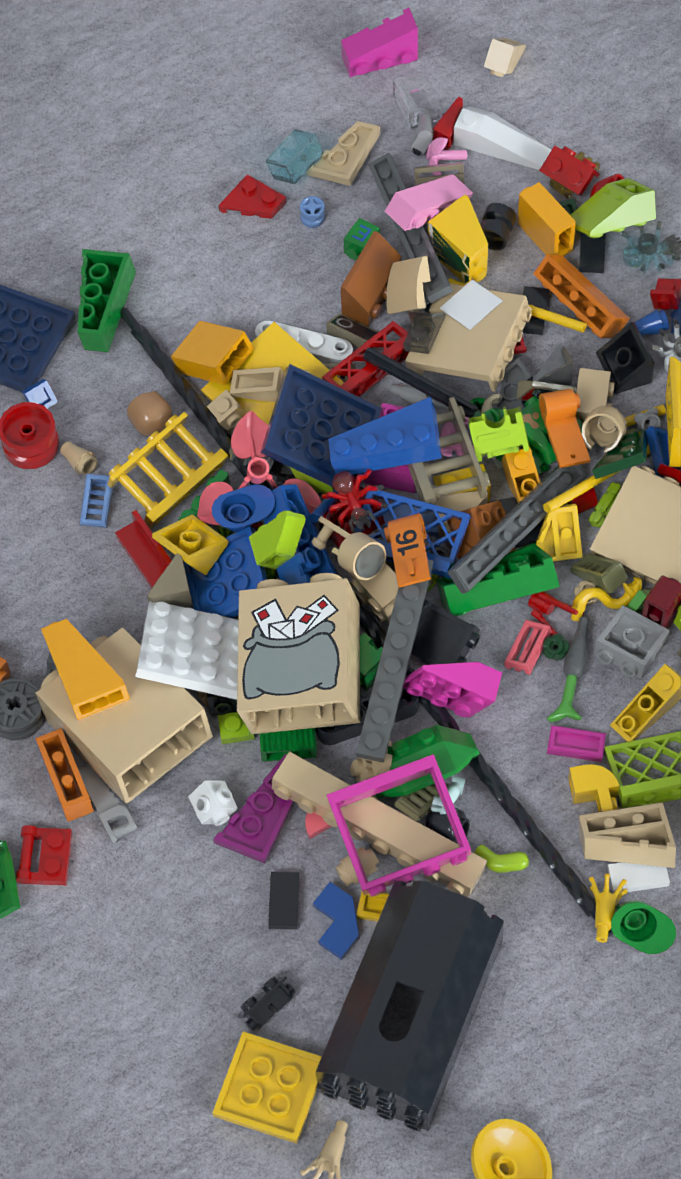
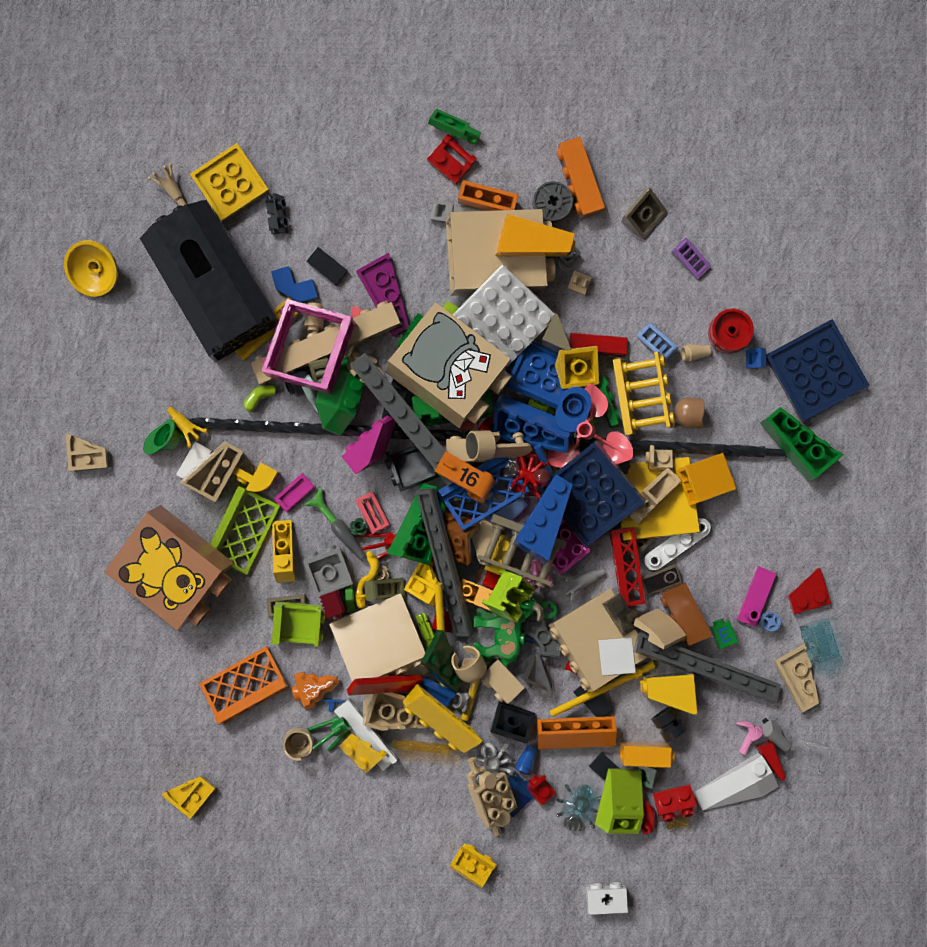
camera: 120 degrees right, 25 degrees up
(89, 621) = (579, 283): none -> tan tile
(213, 802) = (408, 266): white brick -> none
(277, 540) = (532, 408): lime slope -> none
(298, 240) = (756, 596): none -> dark pink piece
(382, 47) = (866, 763): dark pink wedge -> none
(417, 381) = (584, 581): black axle -> none
(423, 202) = (711, 688): bright pink brick -> none
(435, 168) = (733, 718): dark tan tile -> none
(498, 476) = (490, 580): none -> red slope
(503, 56) = (800, 839): tan slope -> none
(528, 389) = (526, 654): dark tan slope -> none
(559, 414) = (486, 639): orange door -> none

